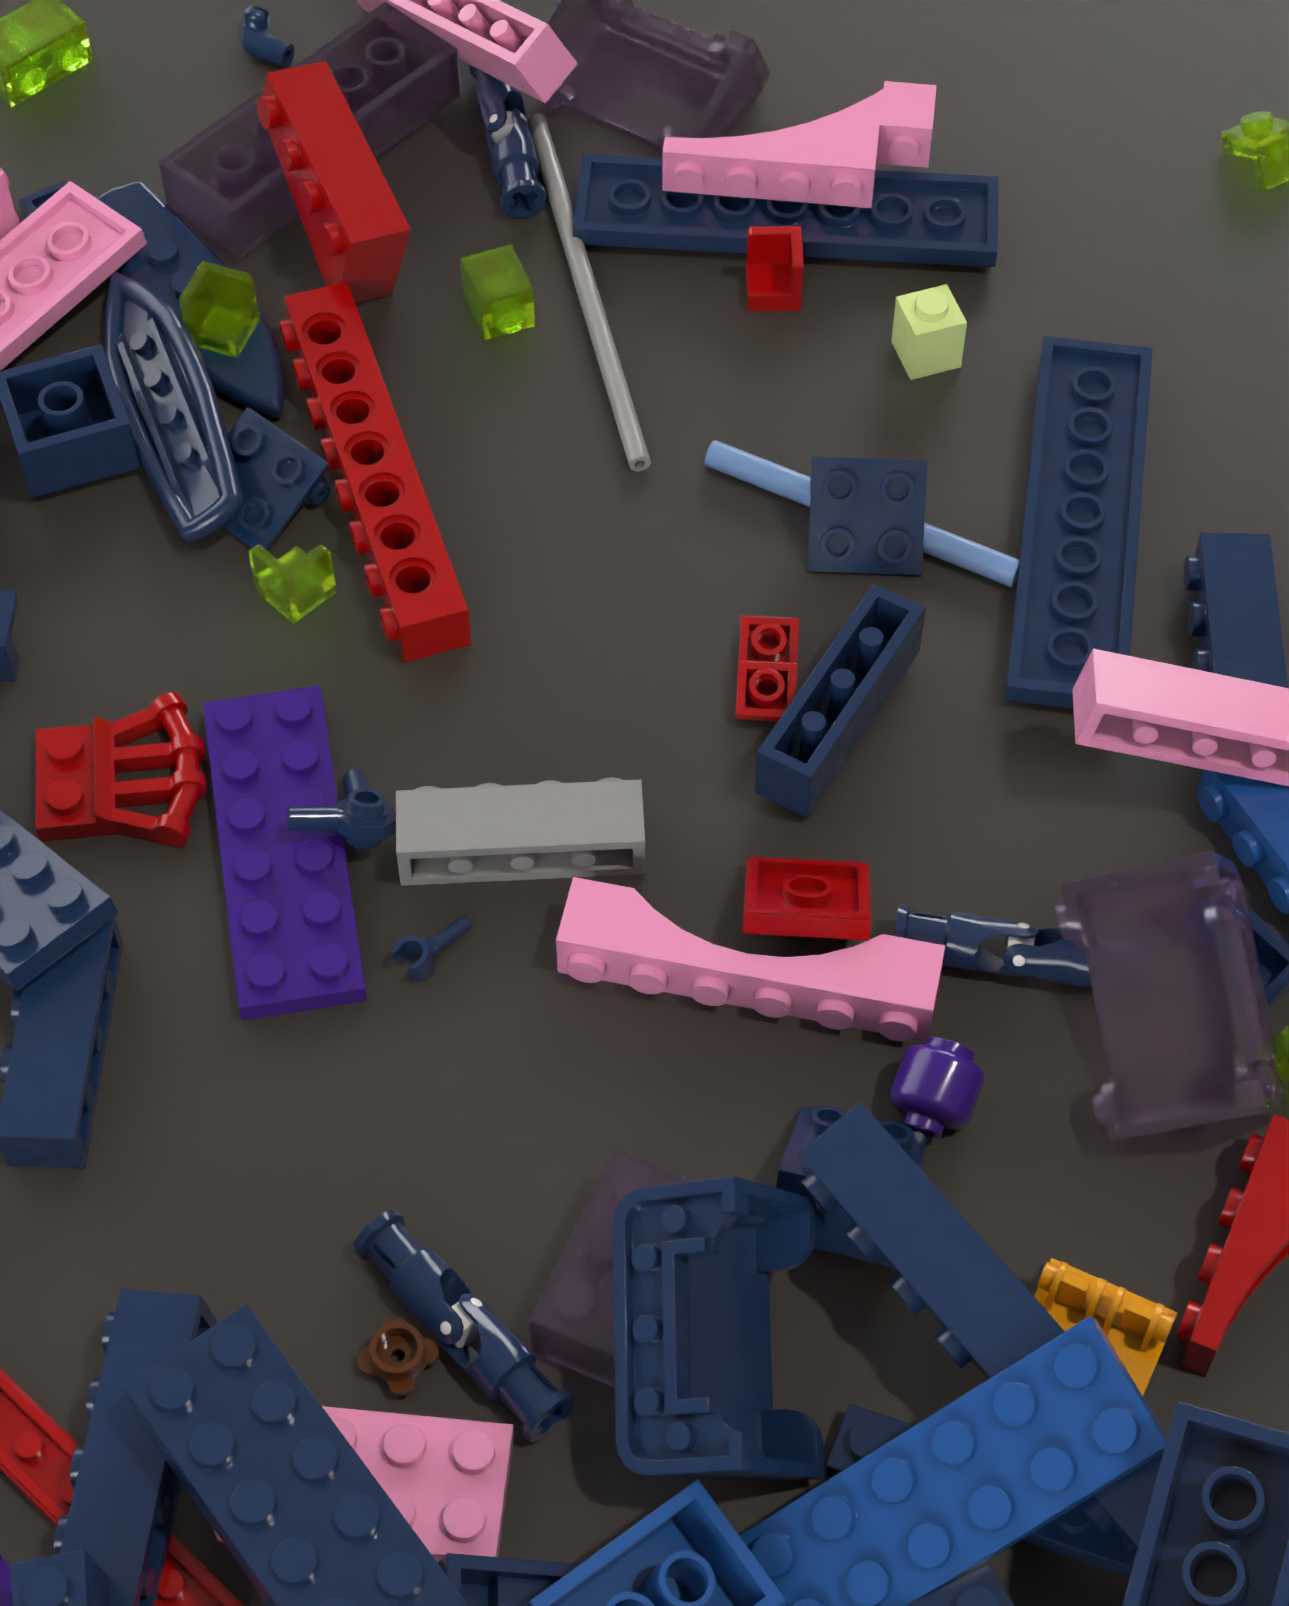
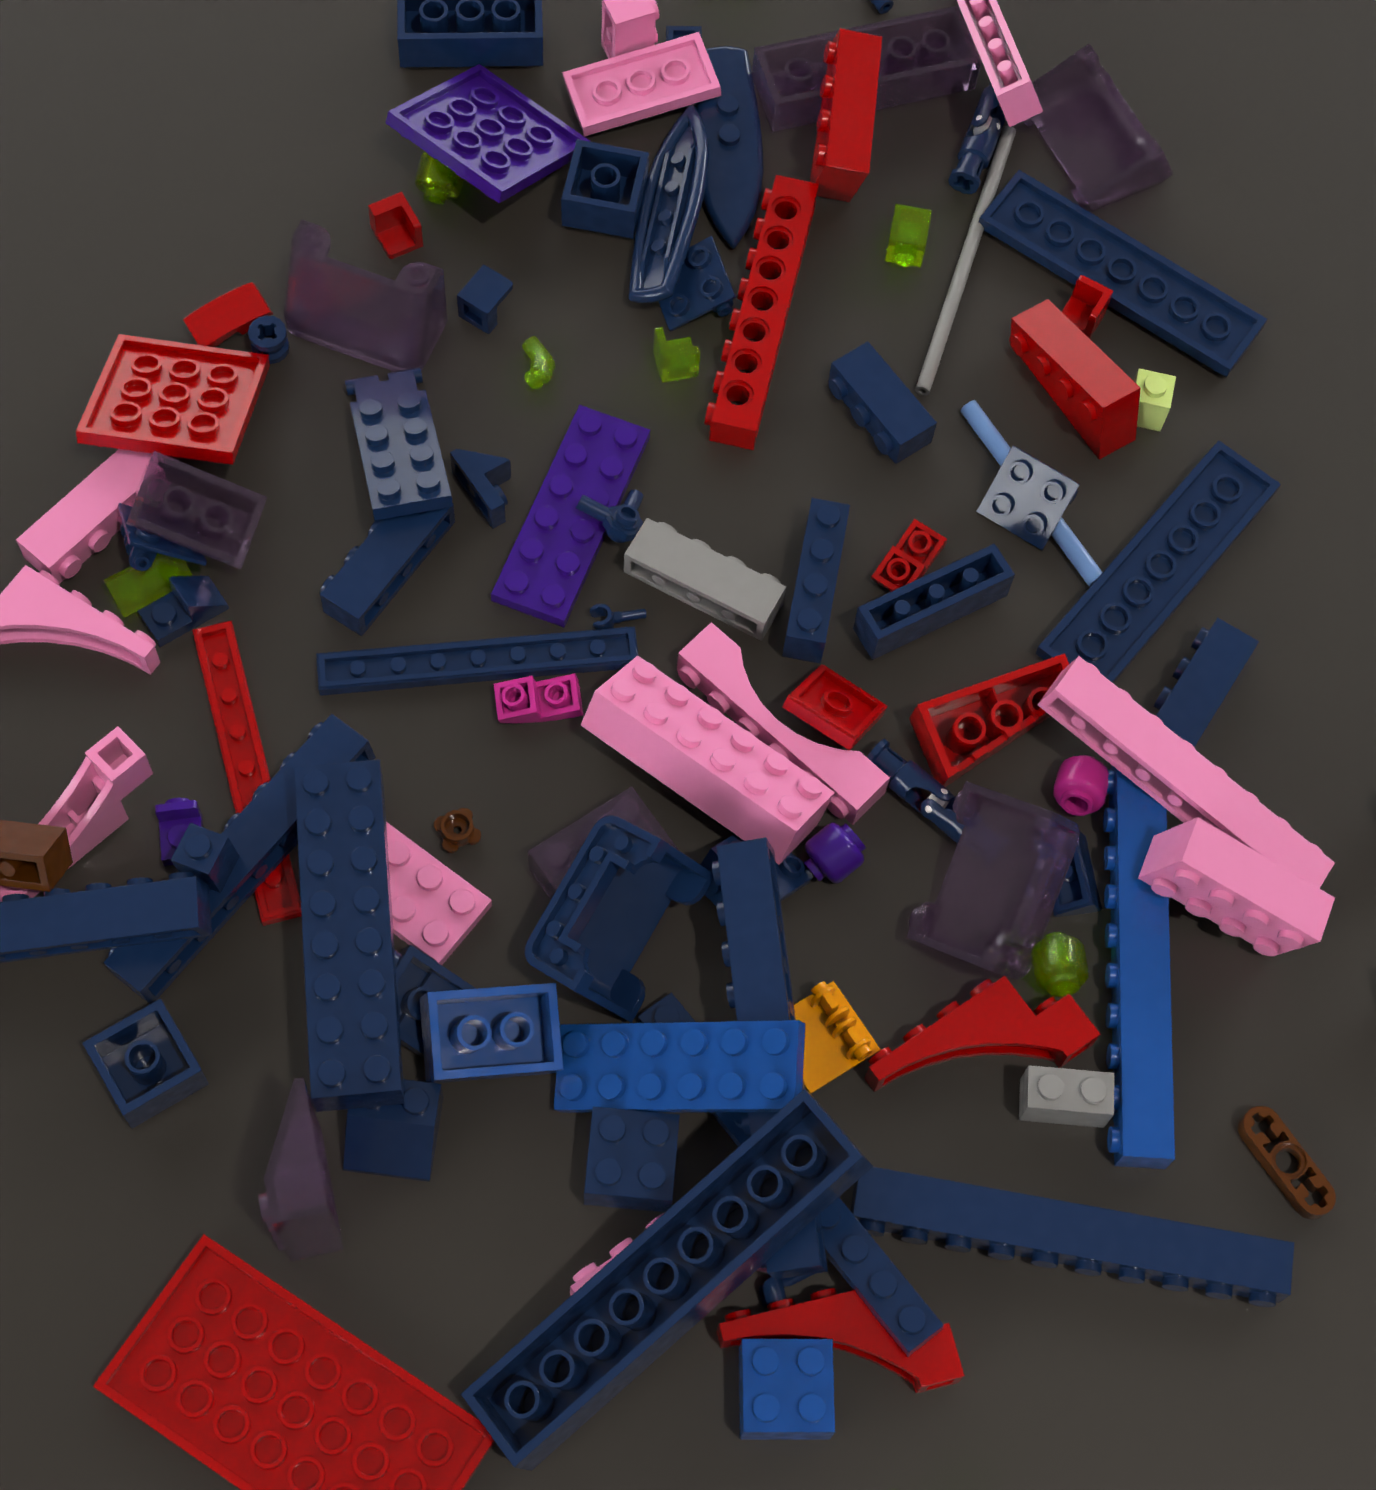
camera: 25 degrees right, 10 degrees up
(80, 770) = (488, 411): red plate -> none
(114, 675) = (542, 363): none -> clear neon green arm
(128, 867) = (480, 478): none -> dark blue slope
(220, 308) = (734, 163): clear neon green panel -> none
(269, 1113) = (475, 660): none -> dark blue tile
(397, 1116) = (540, 701): none -> dark pink slope
(456, 1317) = (498, 828): dark blue piece -> none
(601, 499) = (881, 403): none -> dark blue brick
(671, 756) = (816, 580): none -> dark blue brick
(684, 1054) = (706, 757): none -> bright pink brick
(814, 161) = (1157, 252): bright pink arch -> none
(827, 347) = (1078, 377): none -> red wedge
(1002, 813) = (983, 718): none -> red wedge
(1182, 820) = (1081, 785): none -> dark pink head

